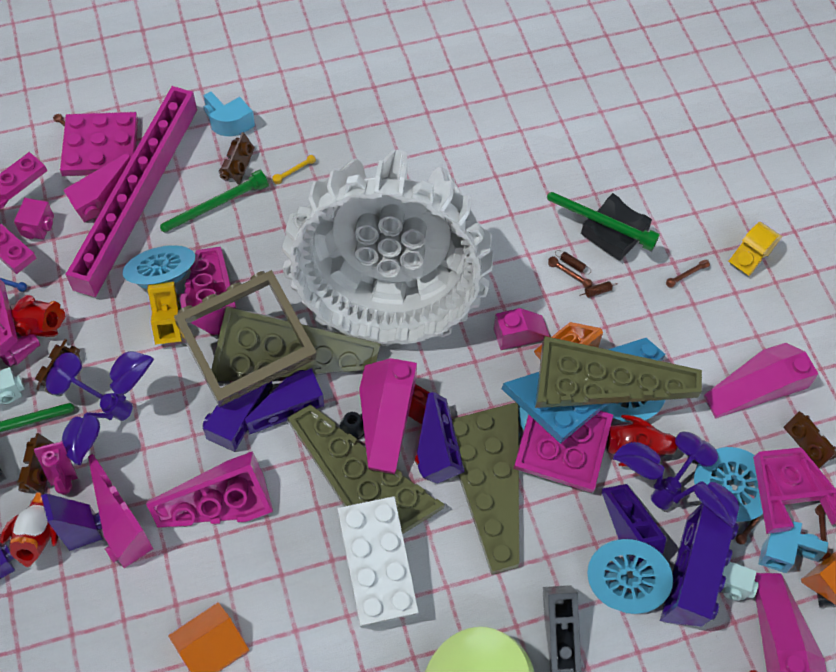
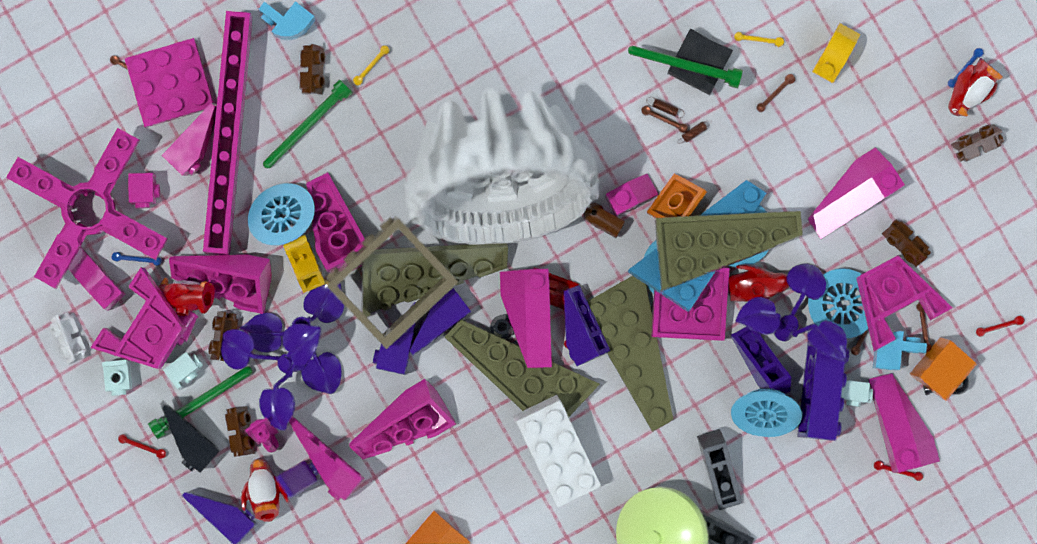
camera: 15 degrees left, 25 degrees up
(90, 316) = (235, 277): none -> dark pink wedge
(144, 427) = (322, 372): none -> dark purple plant
(488, 345) = (603, 220): none -> reddish brown piece
(697, 231) = (778, 42): none -> yellow hinge

